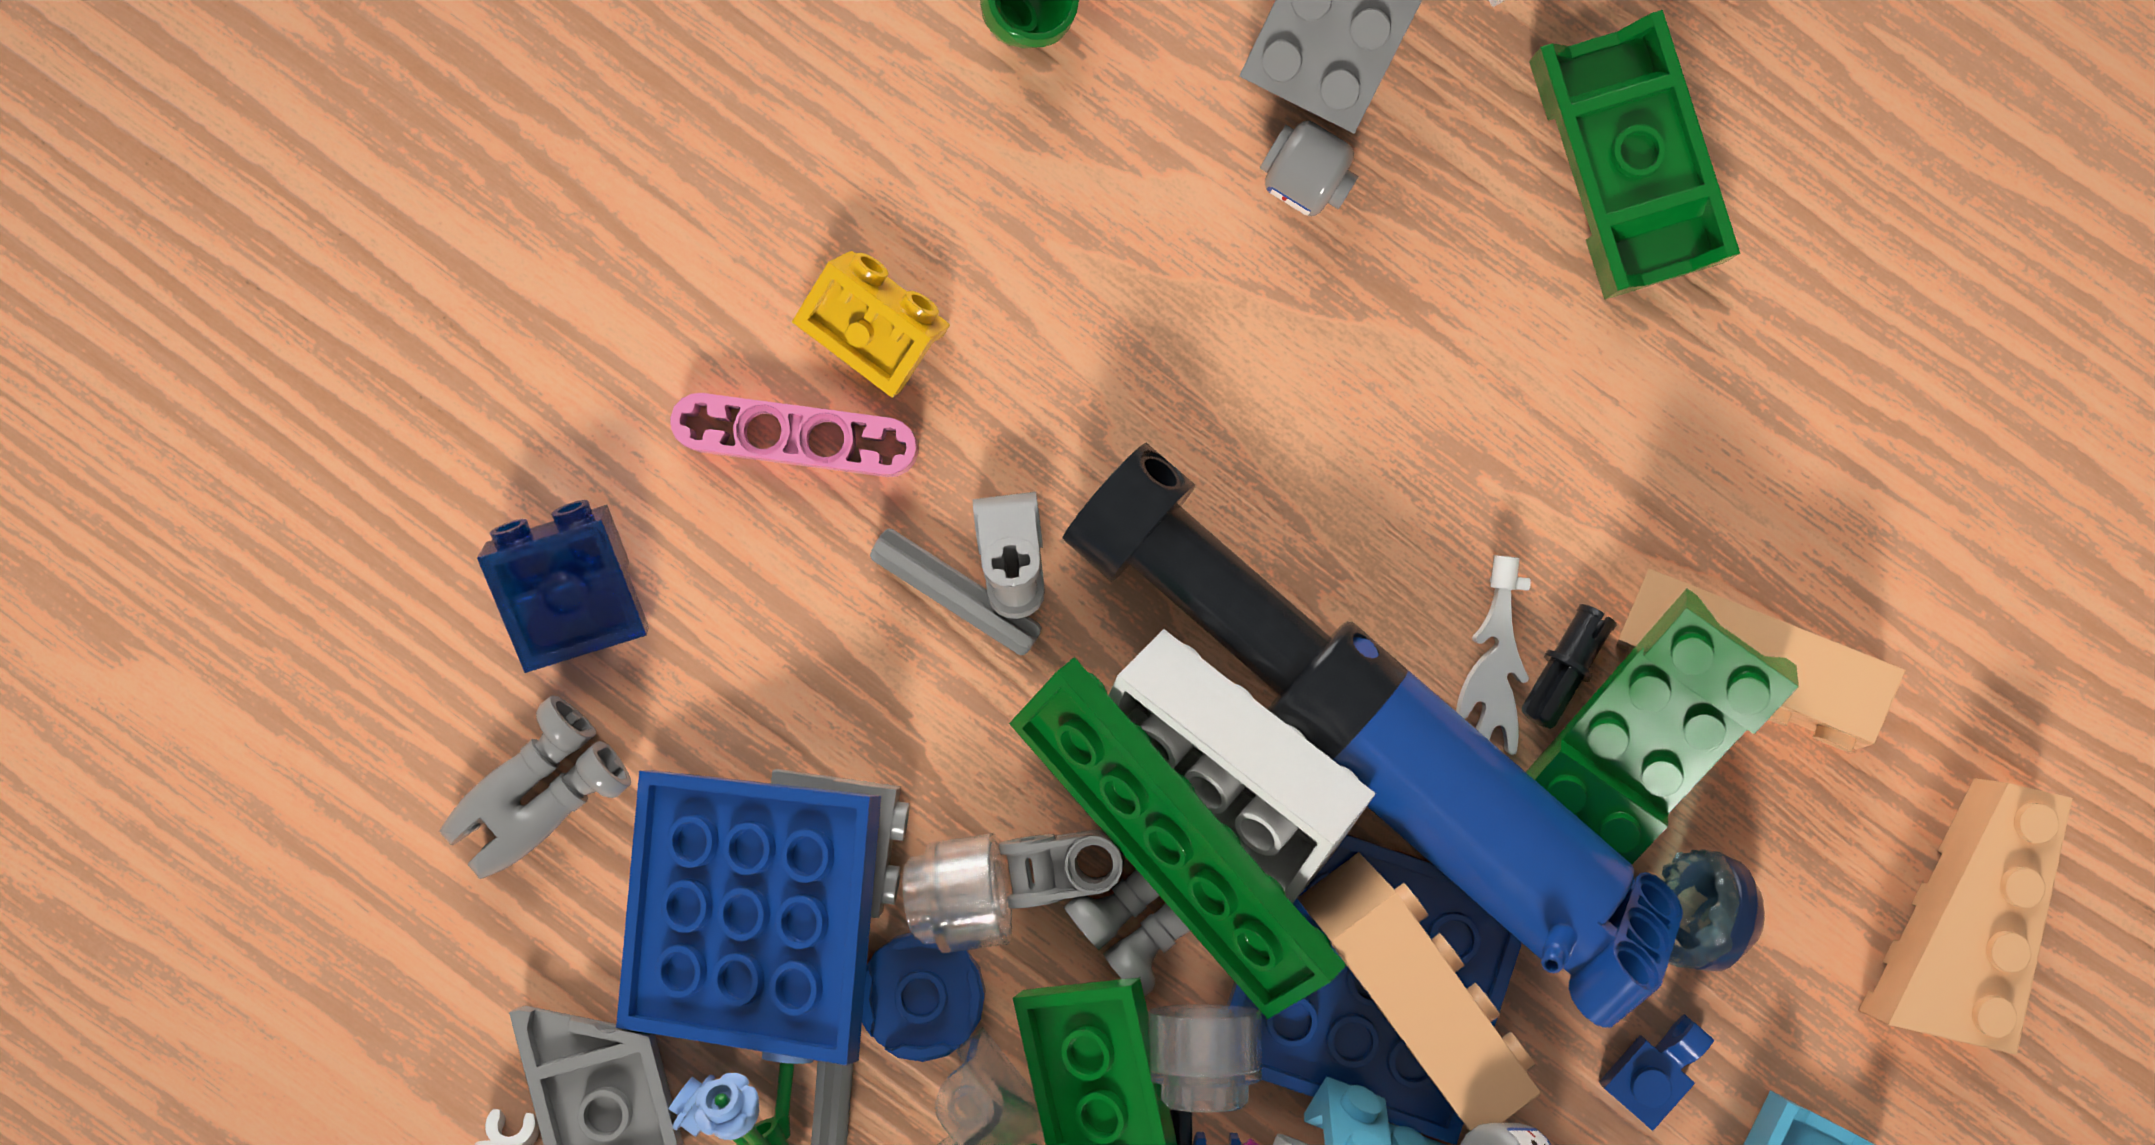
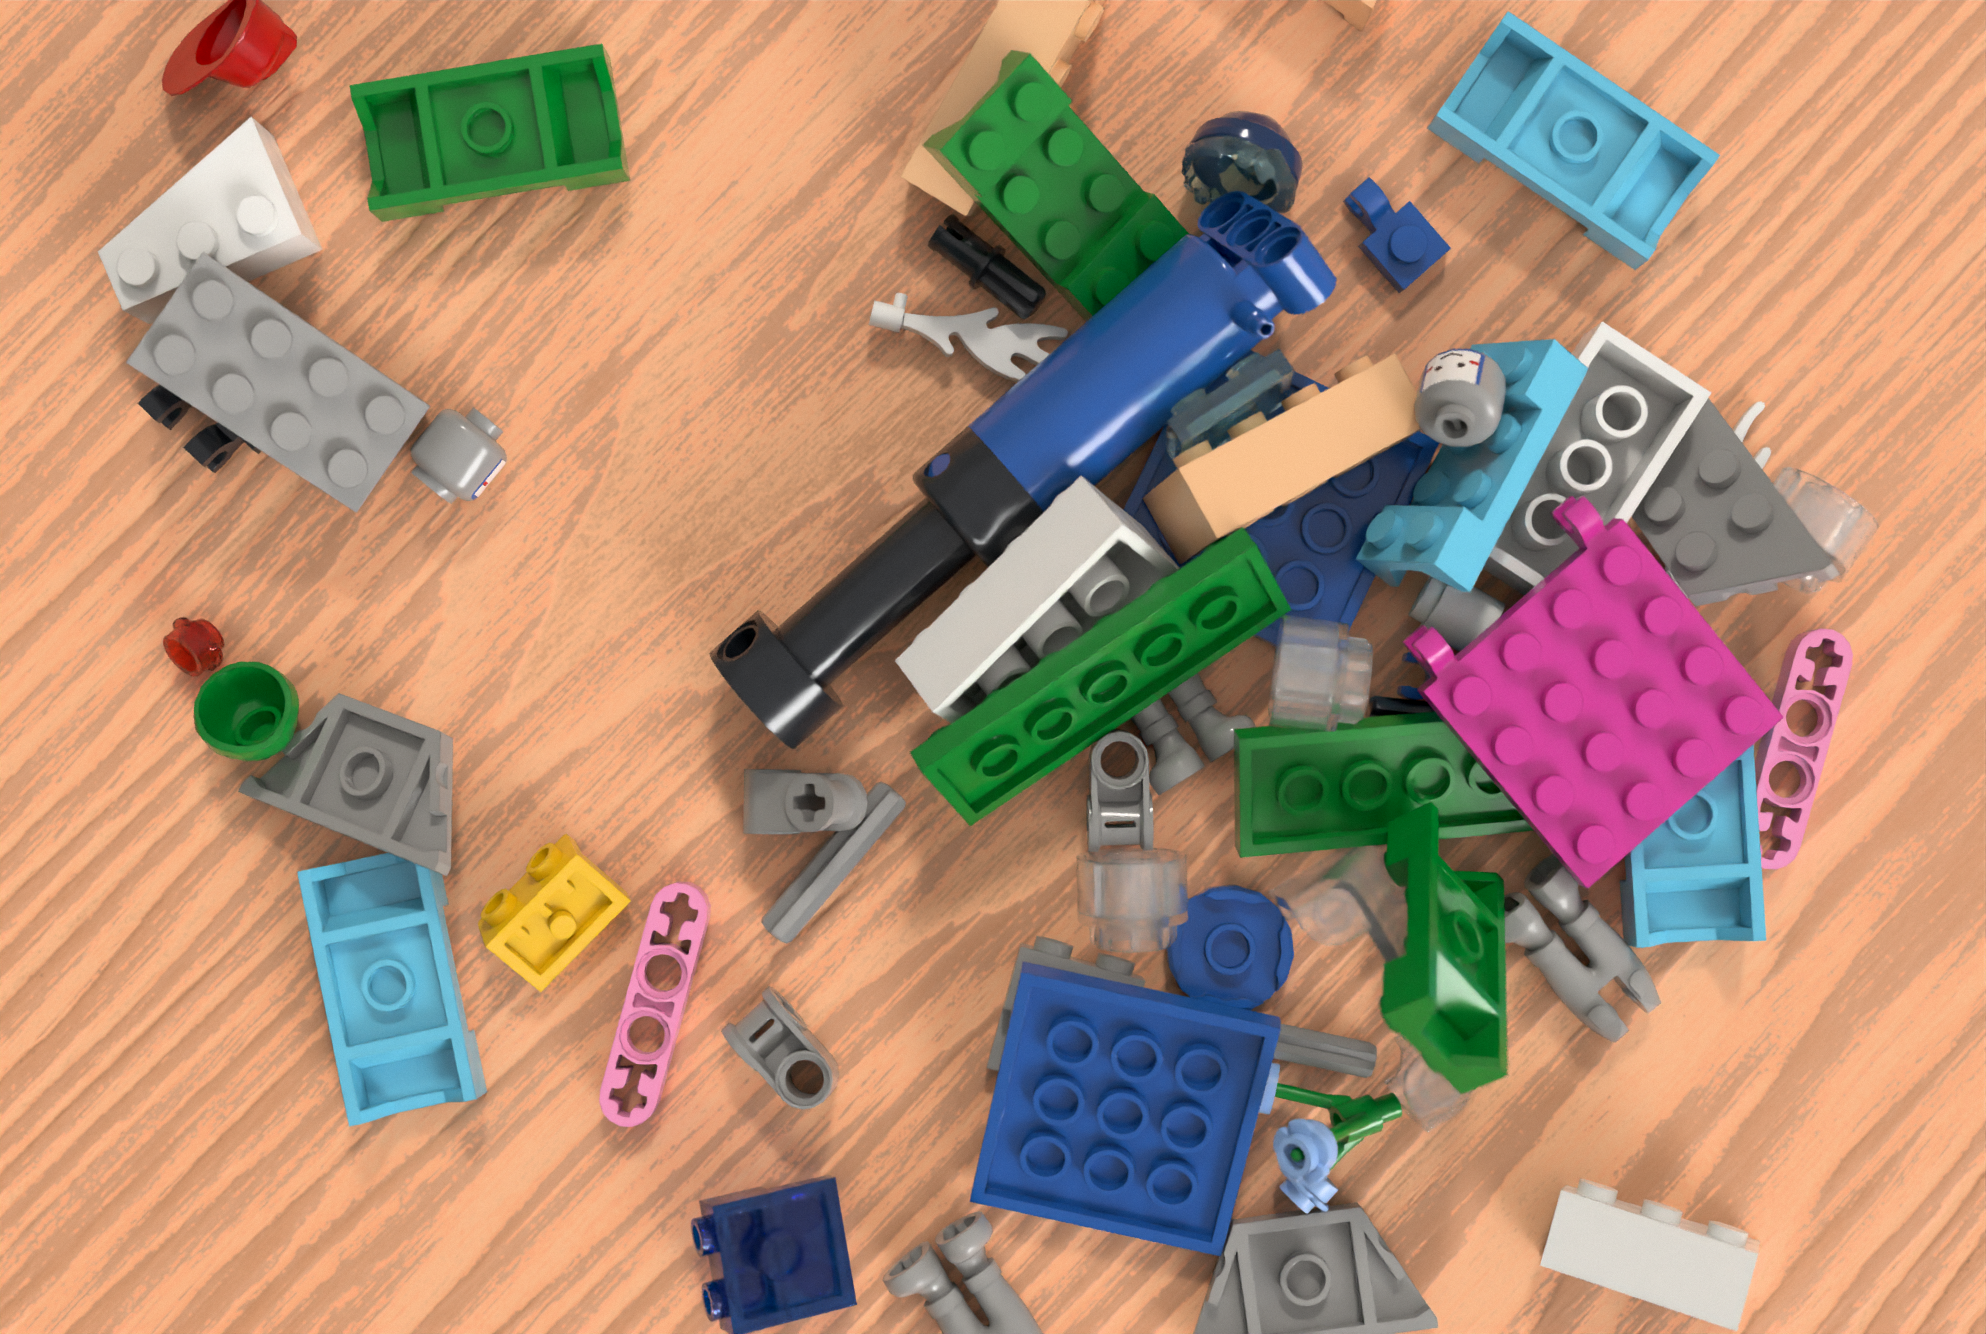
camera: 85 degrees left, 0 degrees up
(766, 565) = (781, 1048): none -> light grey piece
(780, 174) = (390, 986): none -> medium azure piece
(976, 125) = (368, 780): none -> light grey wing
(1488, 954) = (1252, 387): none -> clear light blue plate

